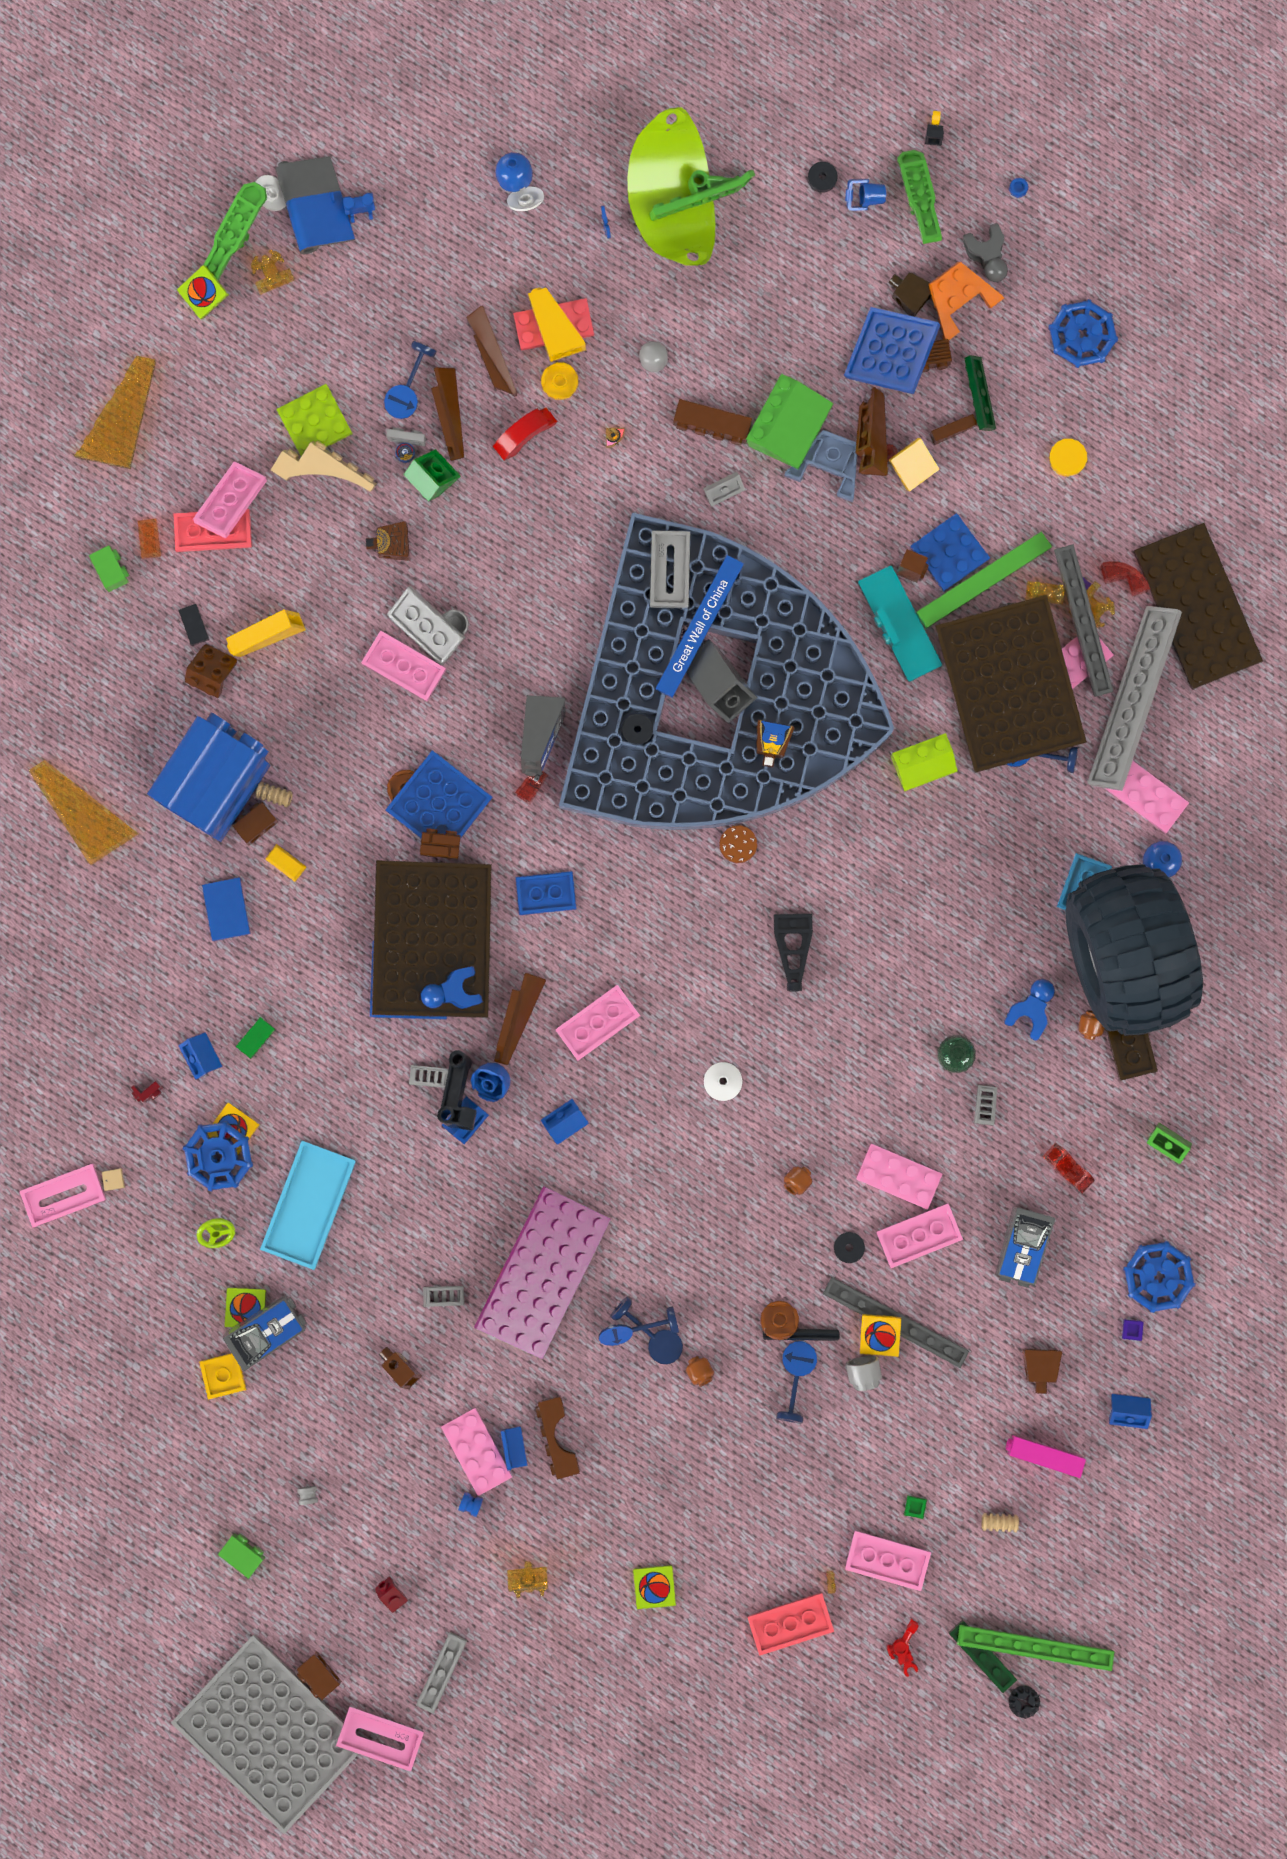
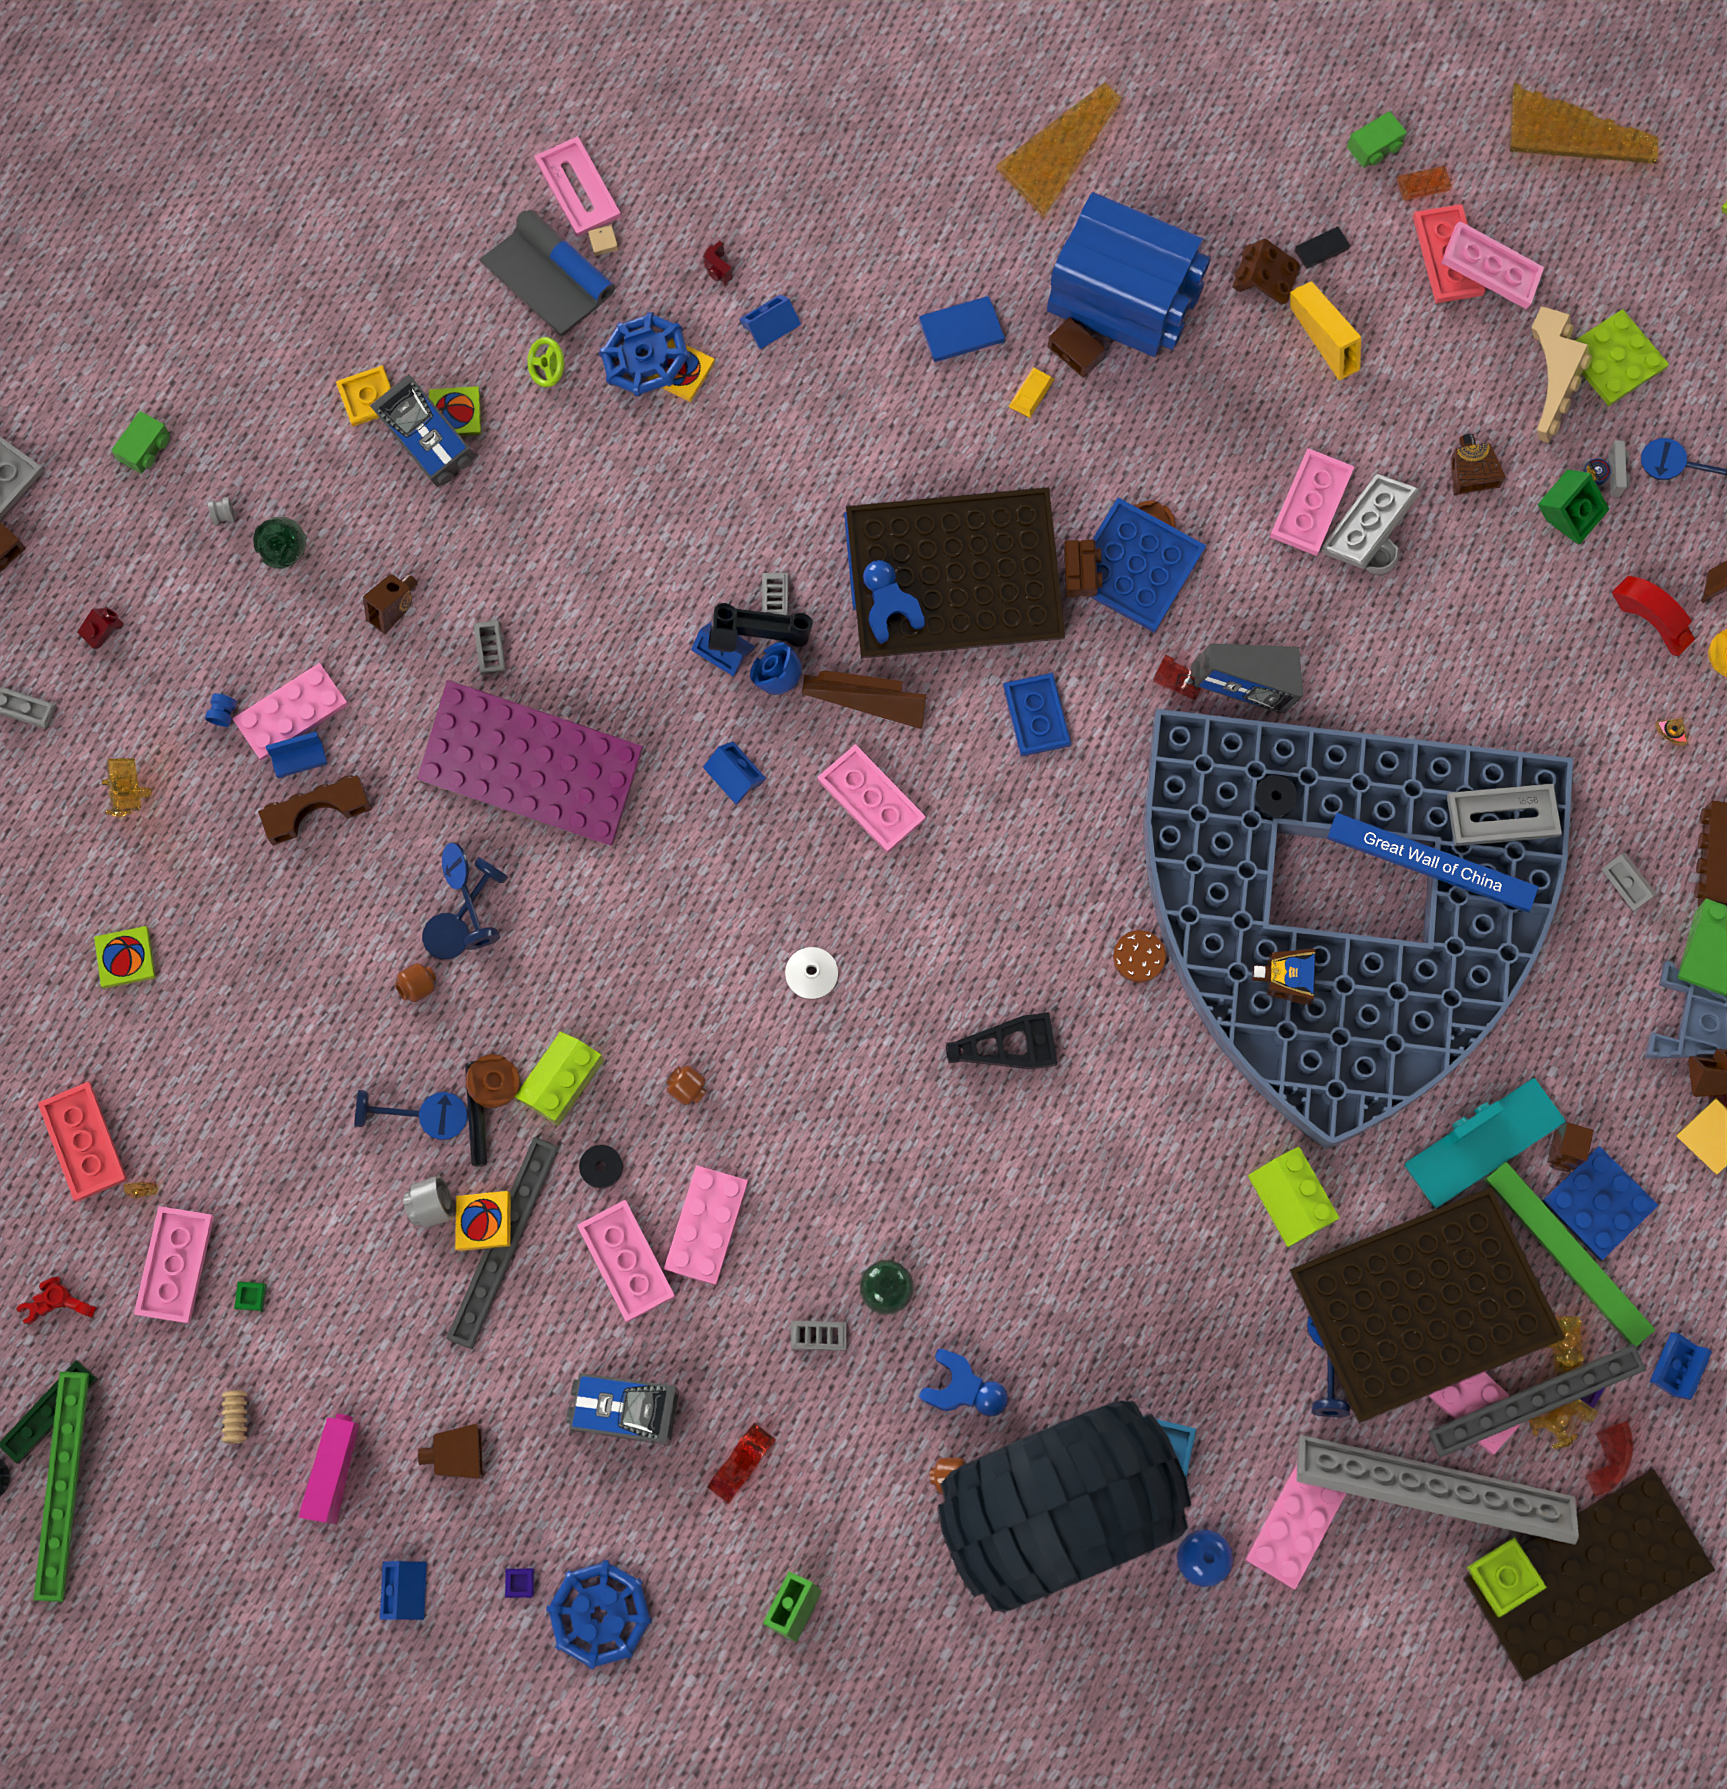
camera: 80 degrees right, 10 degrees down
(137, 1225) = (548, 273): none -> dark grey door
(255, 1038) = (800, 383): green tile -> none
(273, 794) = (1118, 365): tan piece -> none
(308, 1205) = (593, 470): medium azure tile -> none
(342, 1450) = (280, 542): none -> clear green cylinder
(448, 410) = (1665, 516): reddish brown wedge -> none
(719, 682) = (1358, 898): dark grey slope -> none
(781, 1272) = (559, 1077): none -> lime slope
(1068, 519) = (1680, 1367): none -> blue bracket
(1132, 1054) = (914, 1542): dark brown plate -> none
(1196, 661) = (1506, 1577): none -> lime tile

